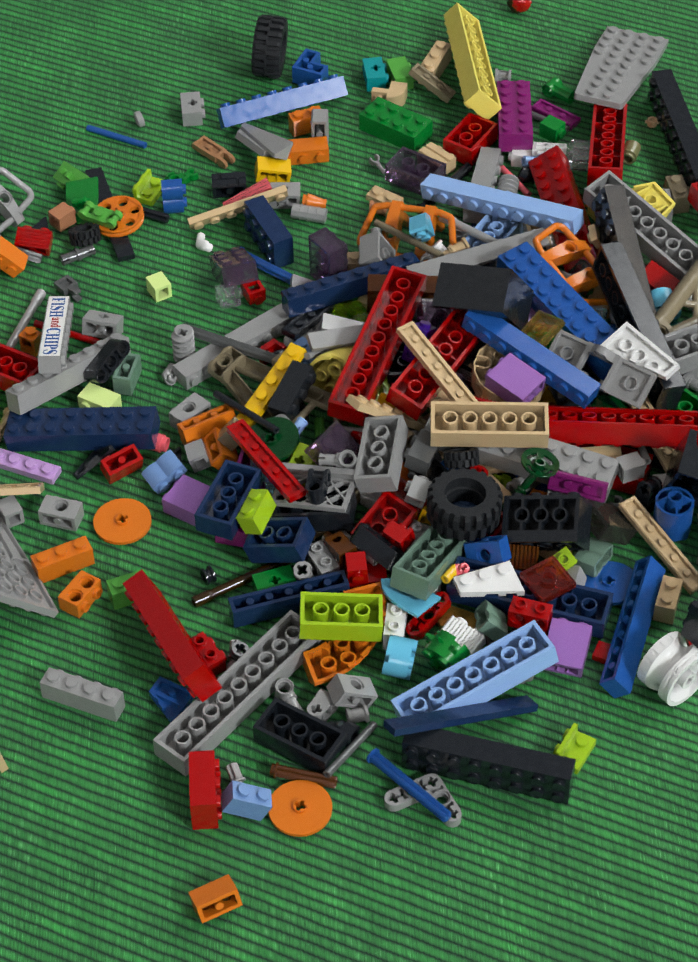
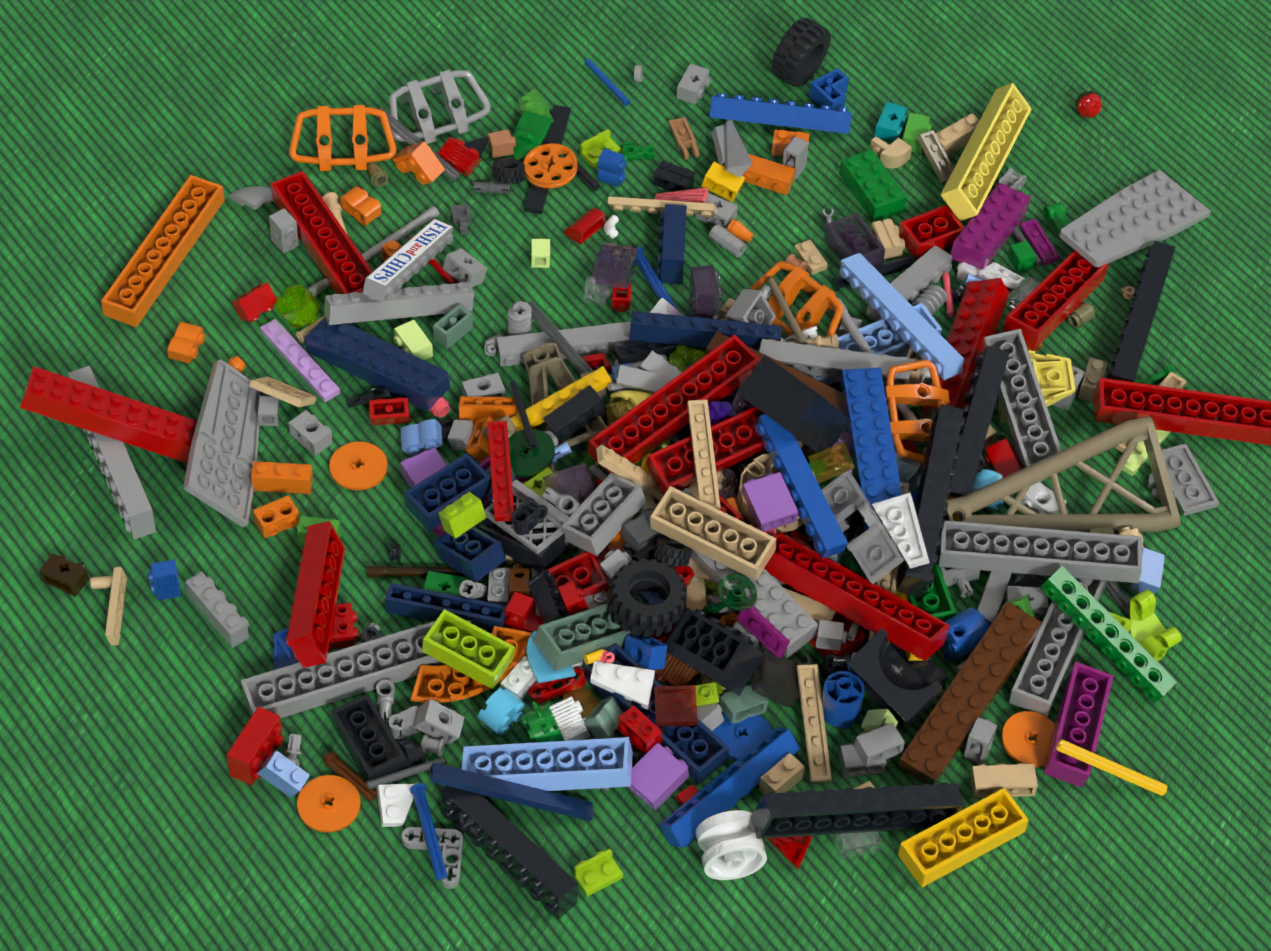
camera: 25 degrees right, 5 degrees up
(18, 690) = (164, 580): none -> blue brick
(100, 215) = (532, 159): bright green plate -> none
(107, 361) = (447, 307): black beam -> none
(181, 250) = (586, 226): none -> red brick
(215, 898) = (201, 846): orange brick -> none
(359, 779) = (394, 803): none -> white wing
(421, 227) = (803, 306): medium azure slope -> none
(593, 236) = (961, 388): tan plate -> none

